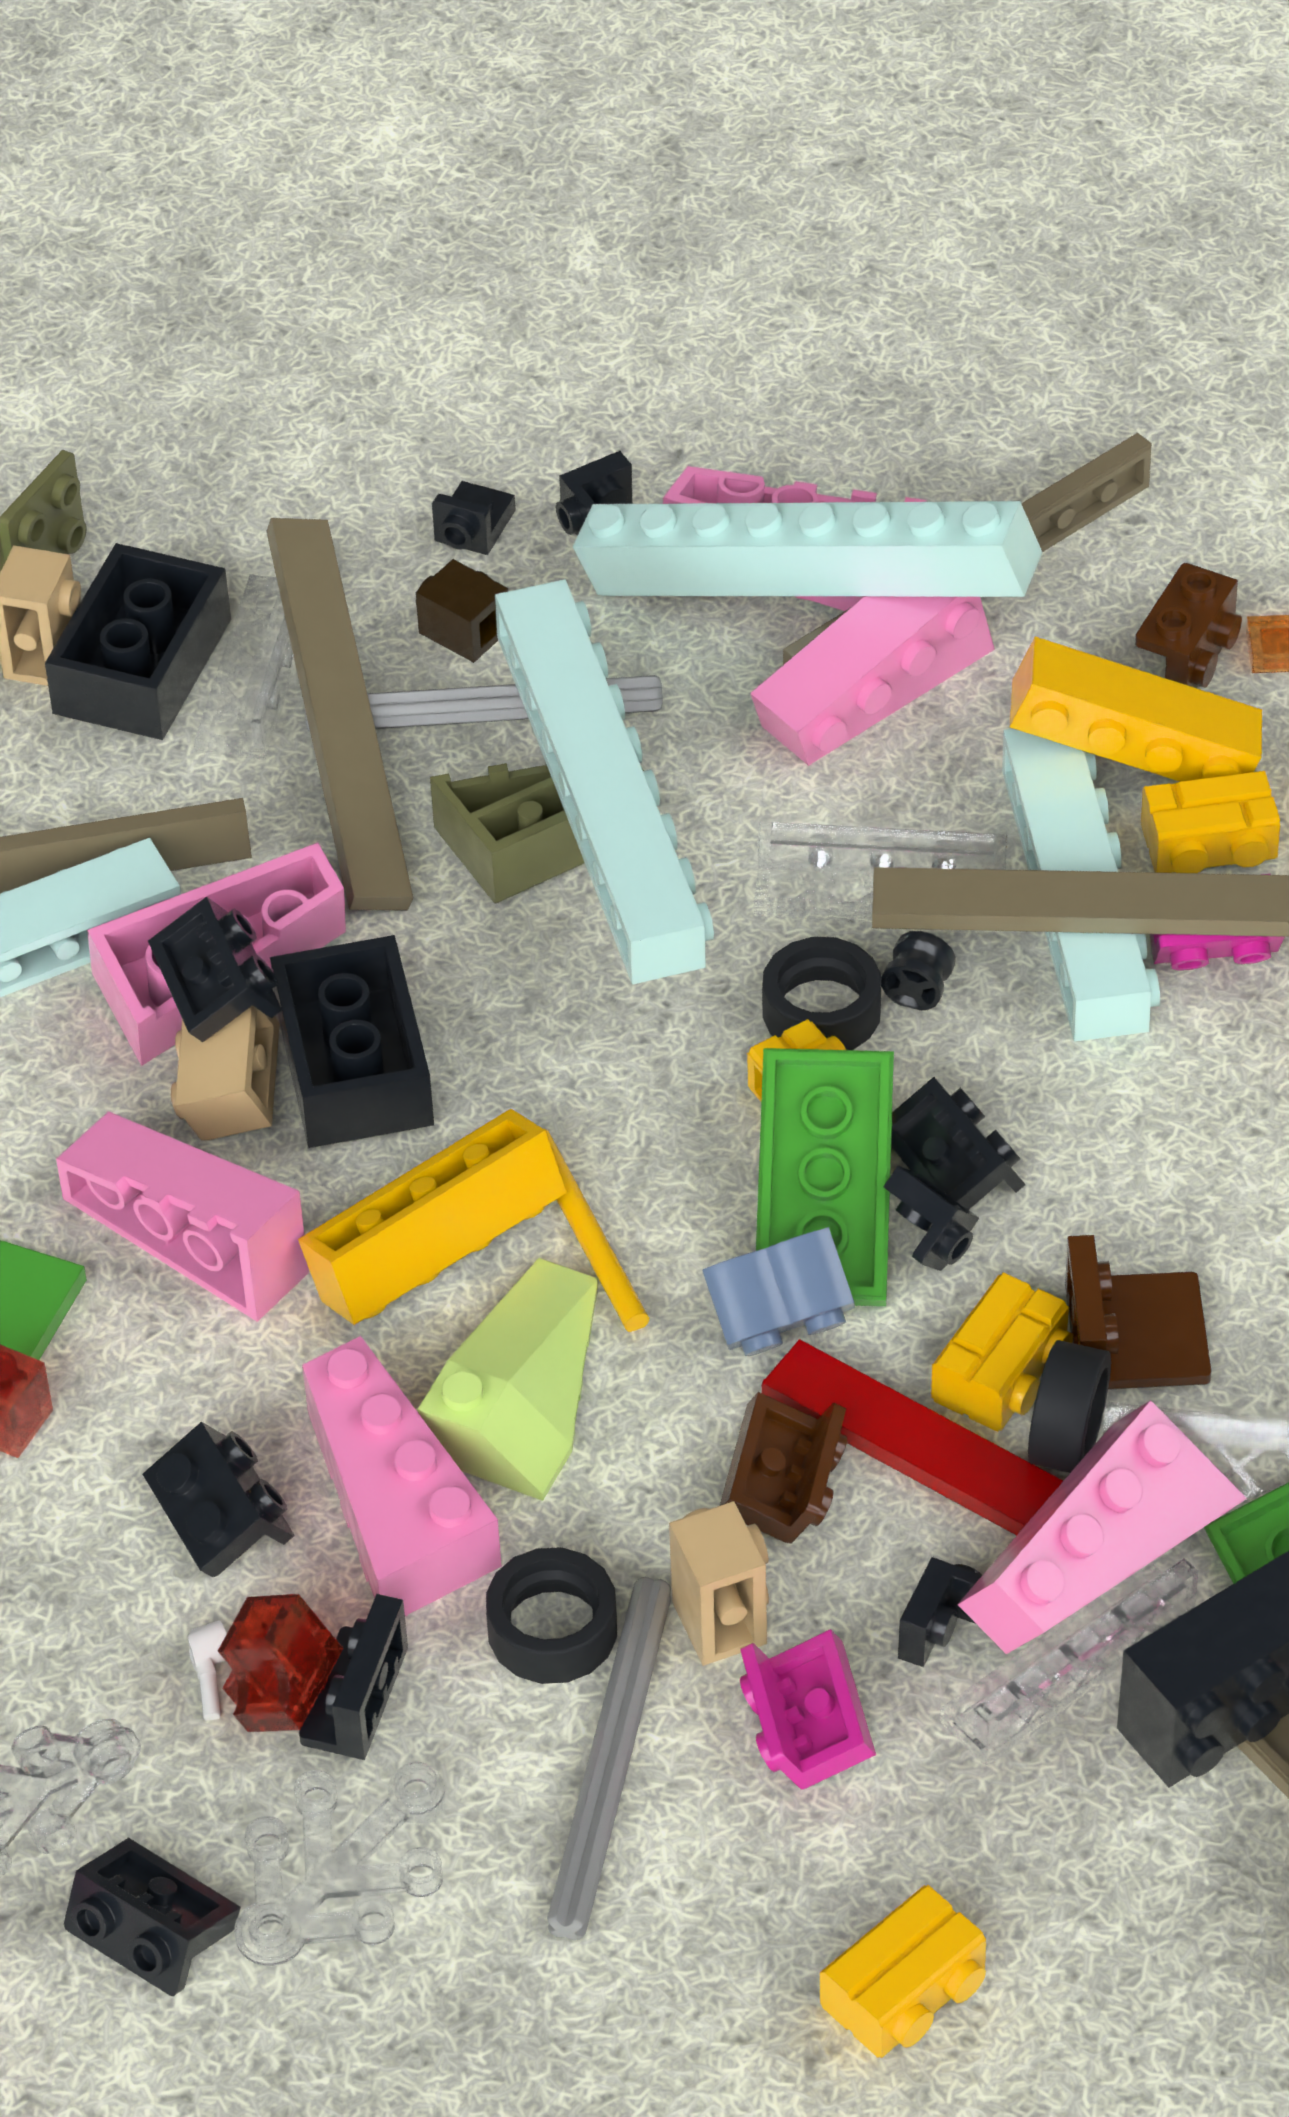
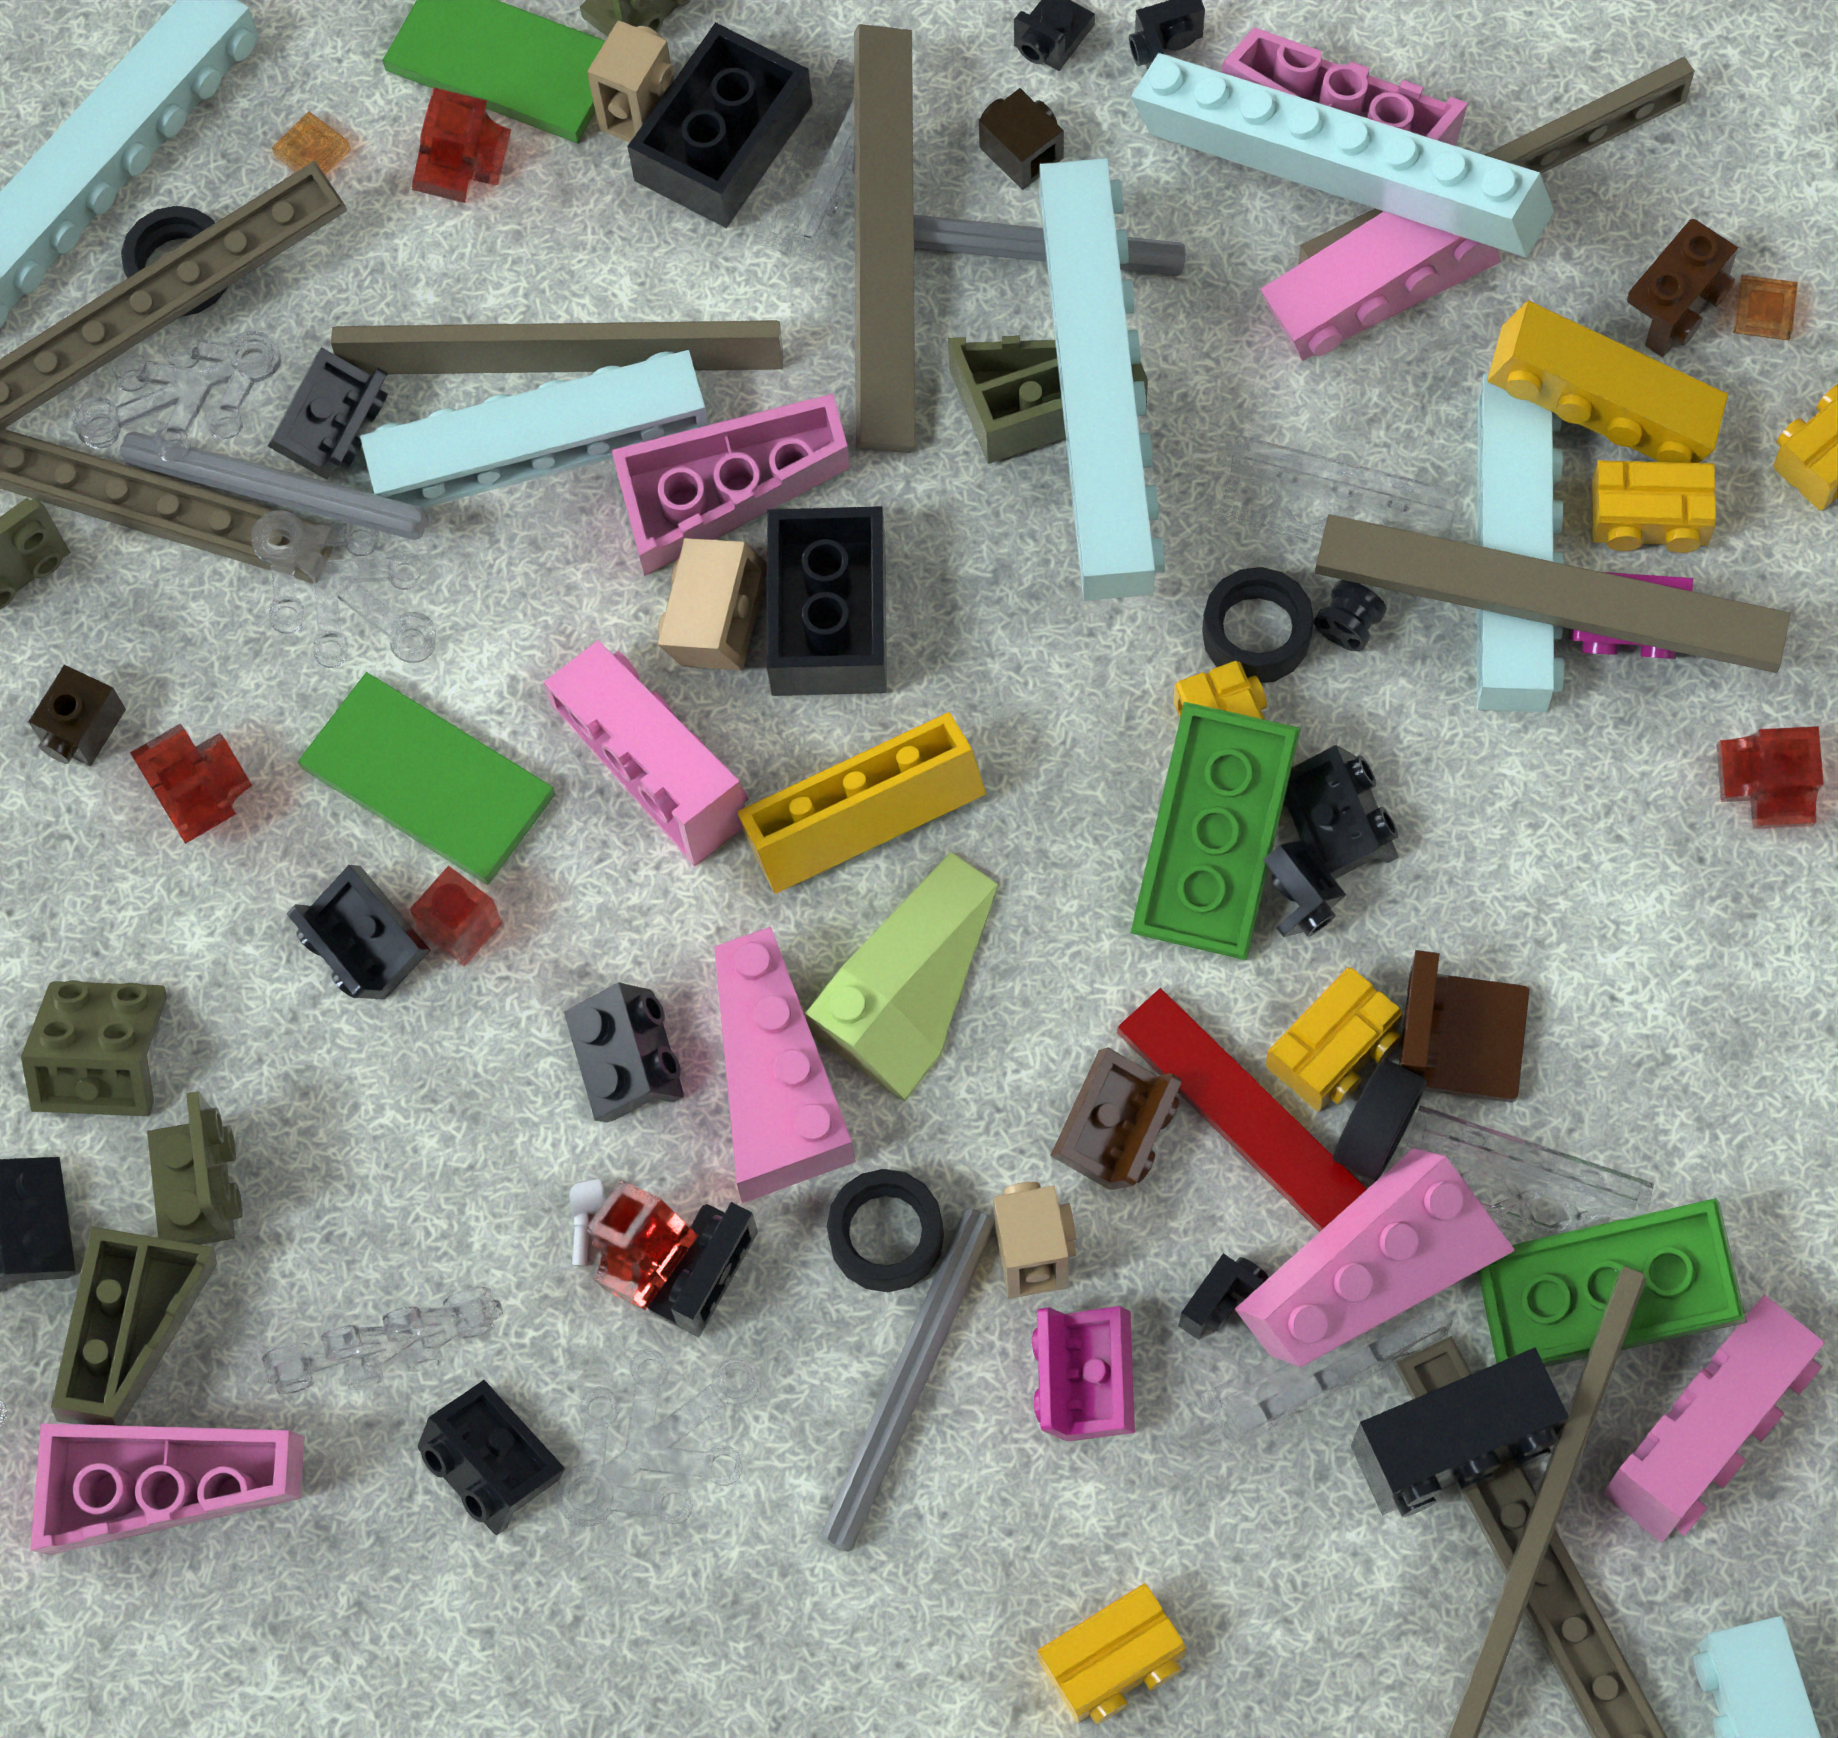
camera: 15 degrees right, 20 degrees up
(213, 968) = (713, 520): black bracket -> none
(598, 1249) = (1000, 833): yellow bar -> none
(779, 1291) = (1150, 943): sand blue brick -> none

